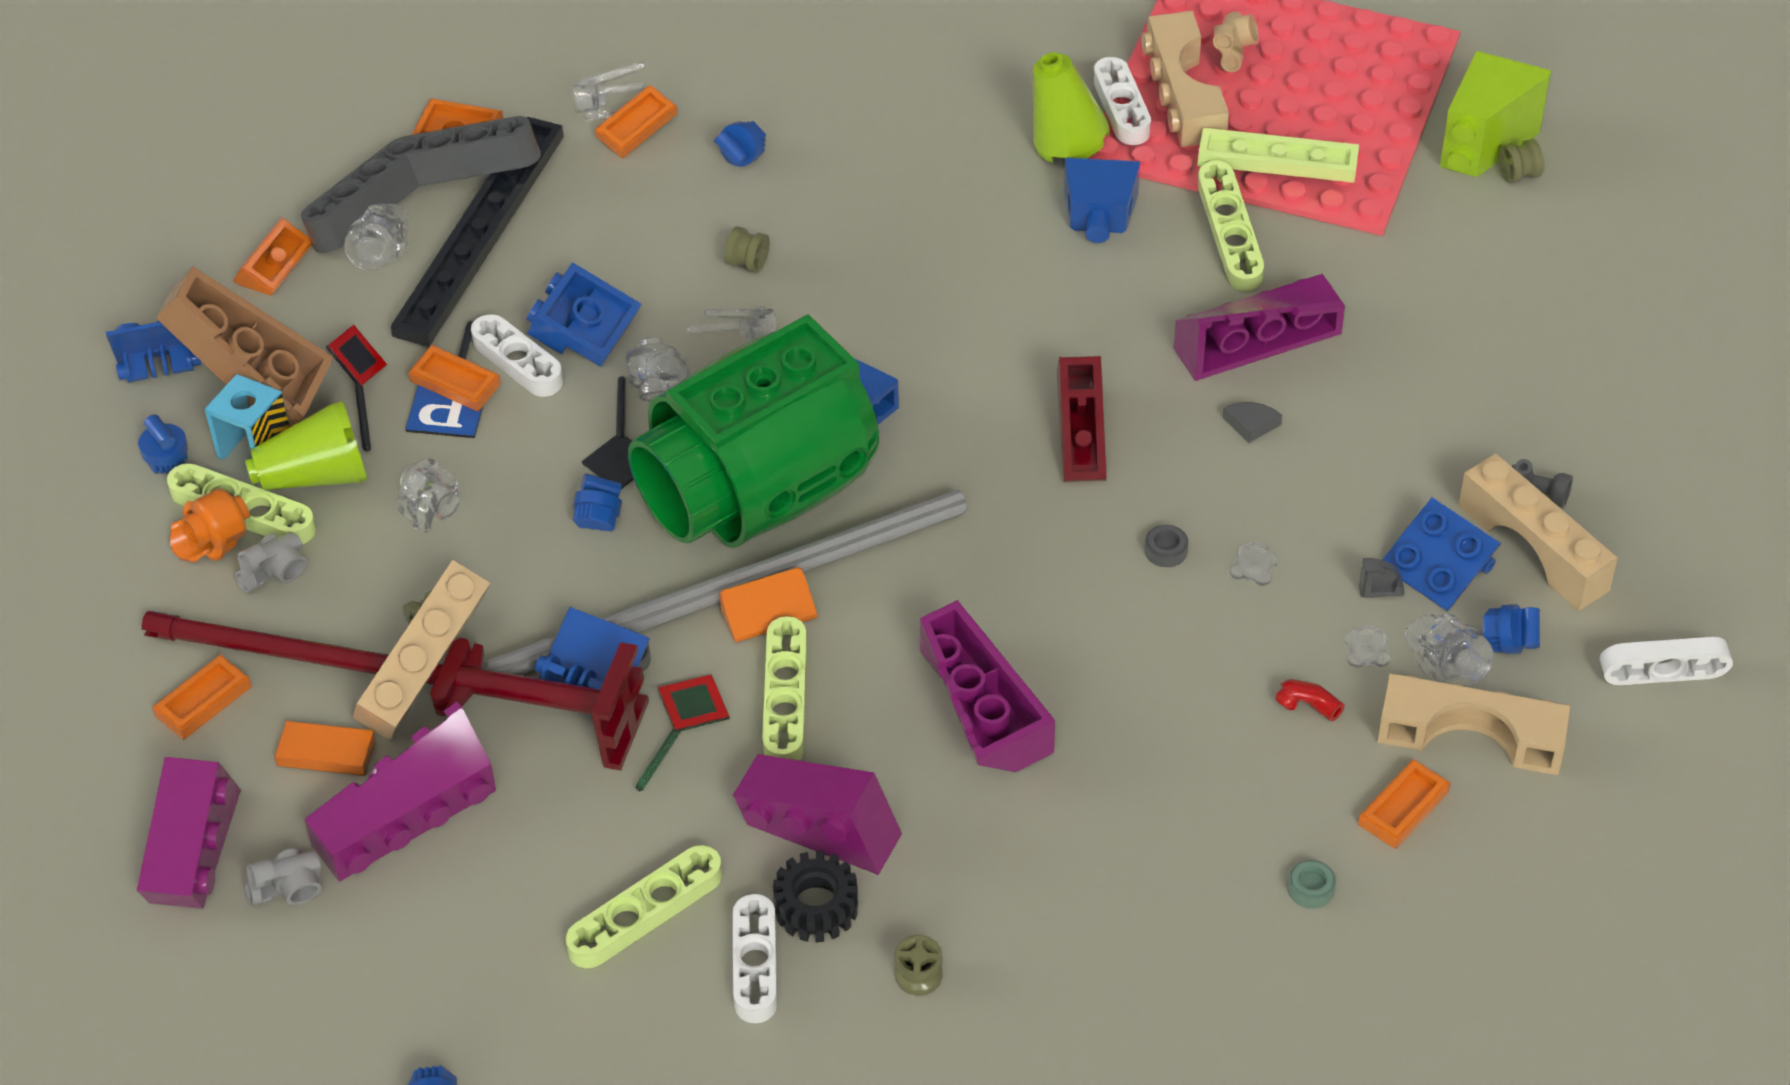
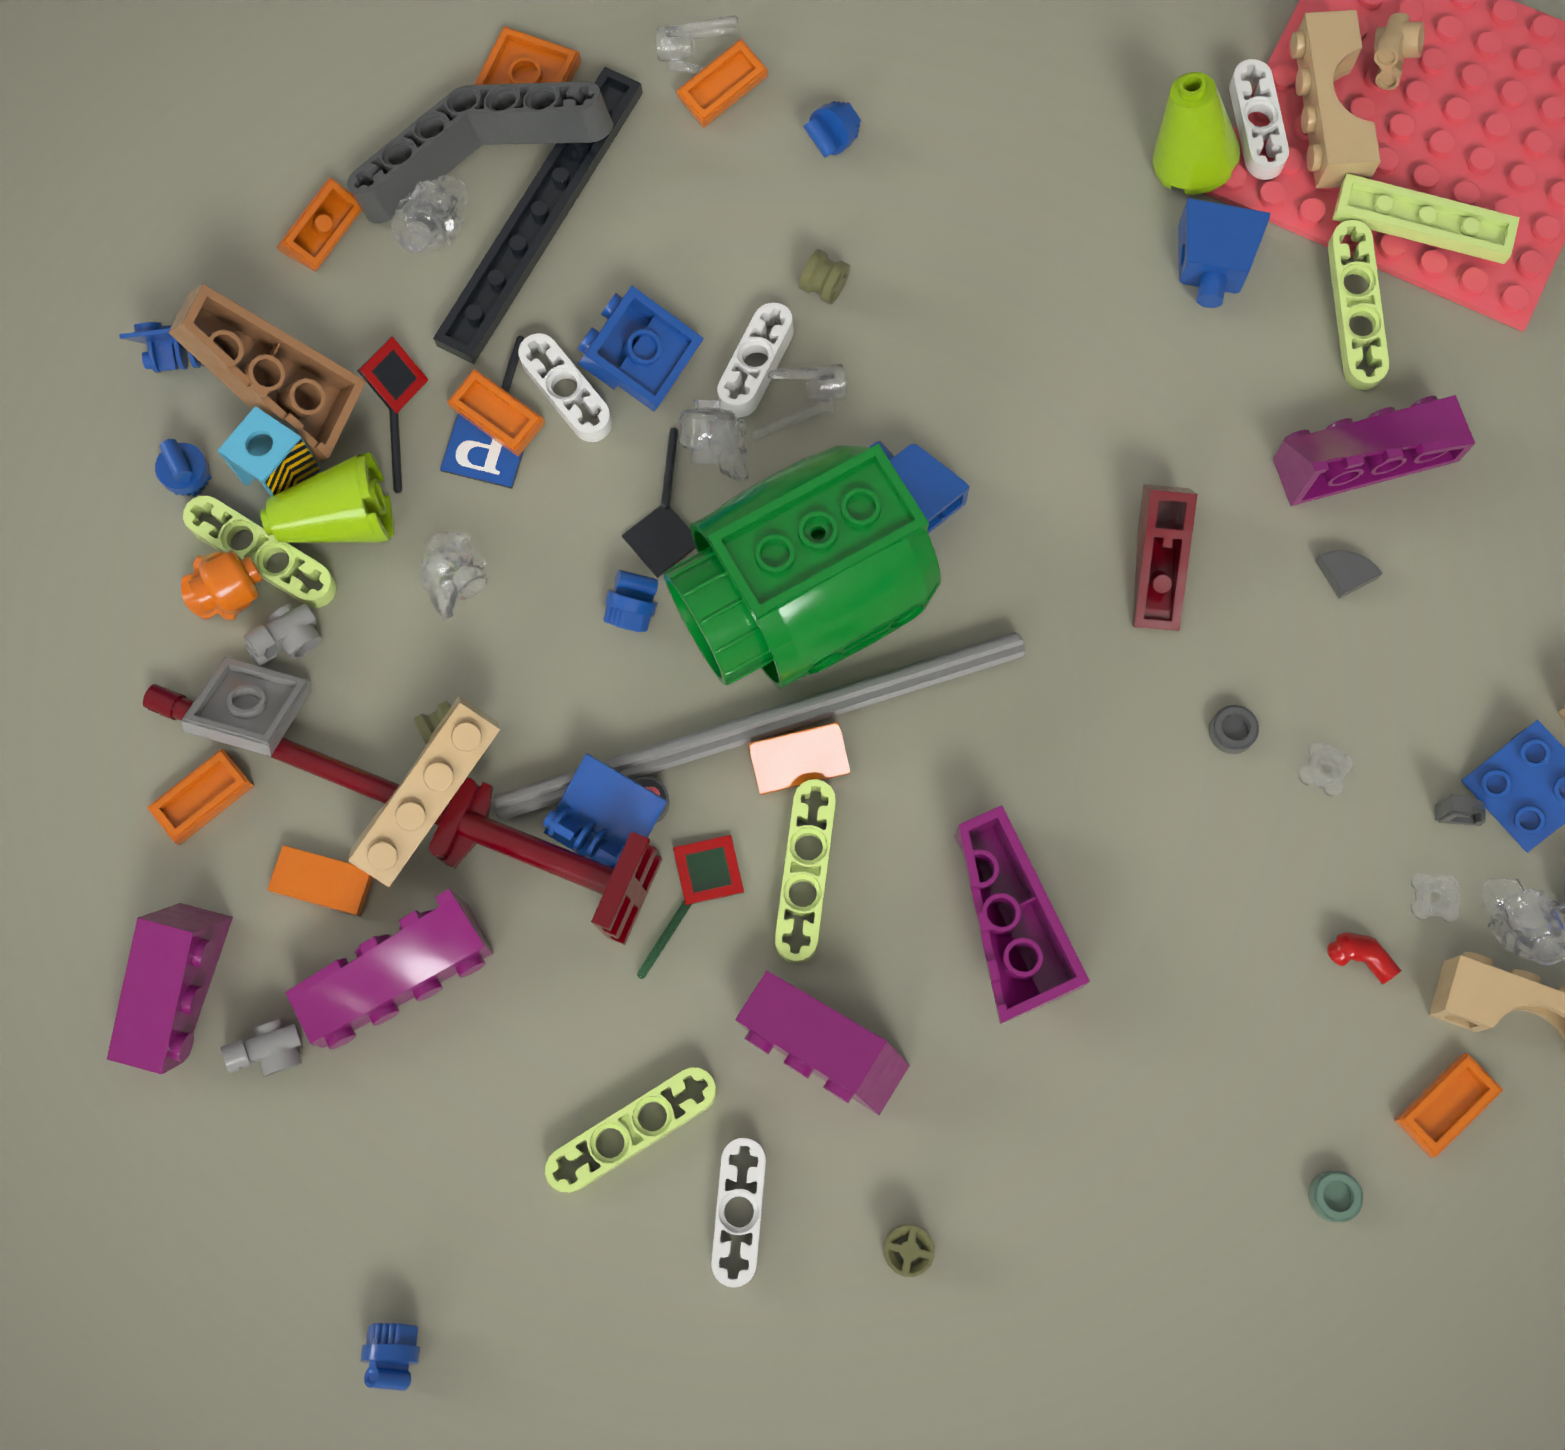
camera: 10 degrees right, 25 degrees up
(243, 614) = (246, 706): none -> light grey tile
(688, 302) = (756, 341): none -> white beam
(815, 874) = (779, 1141): black tyre -> none

